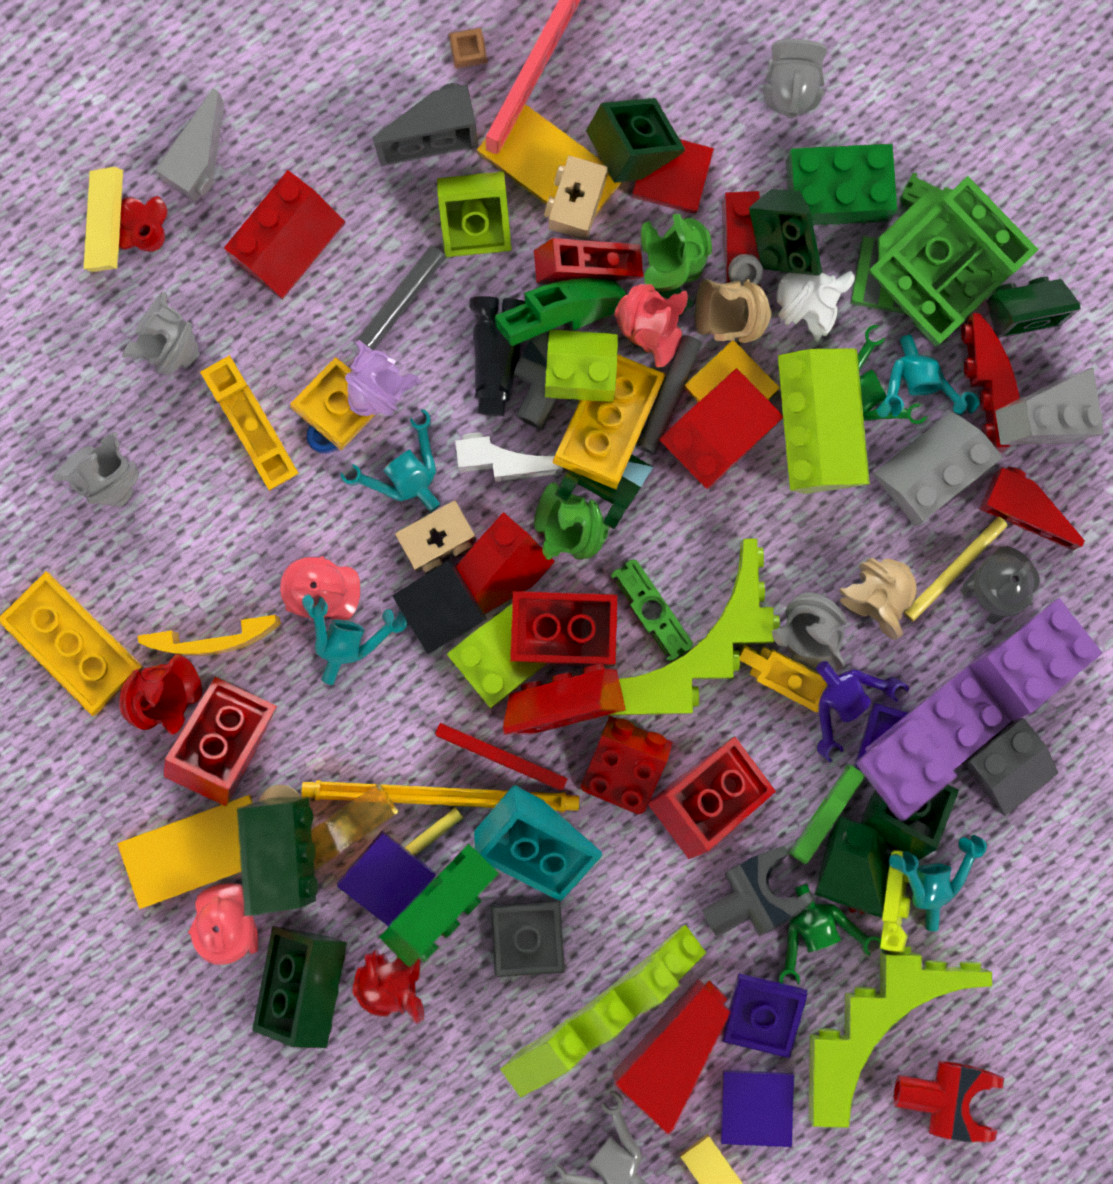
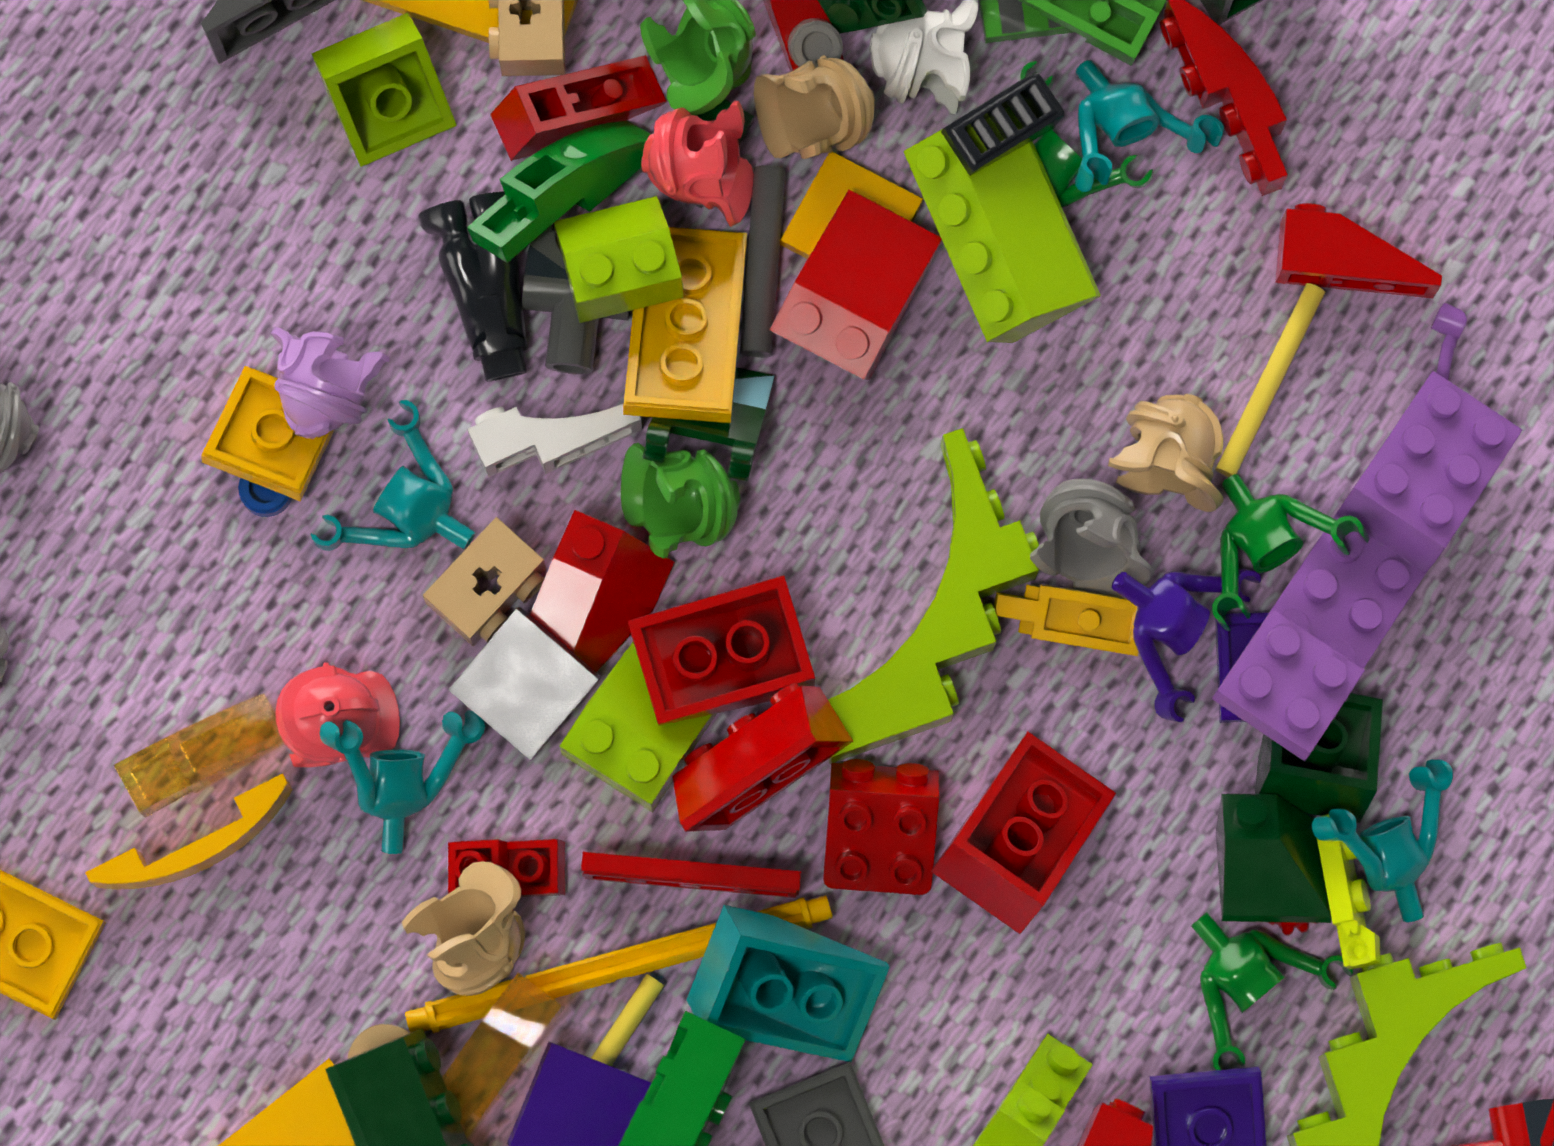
camera: 20 degrees left, 5 degrees down
(160, 695) = (148, 950): red helmet -> none
(219, 741) = (258, 993): red slope -> none
(229, 585) = (200, 754): none -> clear yellow slope
(249, 422) = (148, 504): yellow slope -> none
(284, 234) = (109, 210): red slope -> none
(359, 749) = (474, 929): none -> tan helmet
(392, 715) = (534, 863): none -> red slope
(402, 297) = (316, 245): dark grey piece -> none
(666, 629) = (815, 562): bright green piece -> none
(754, 898) = (1135, 958): dark grey connector -> none
(826, 814) = (1201, 800): bright green piece -> none
(867, 353) = (1031, 104): none -> black slope
(921, 666) = (1267, 537): none -> green piece
(937, 466) = (1192, 240): light grey slope -> none
(995, 585) = (1340, 389): dark grey helmet -> none
(1012, 765) = (1449, 640): dark grey slope -> none
(1054, 414) = (1335, 108): light grey wedge -> none
(1079, 570) = (1449, 322): none -> medium lavender hand

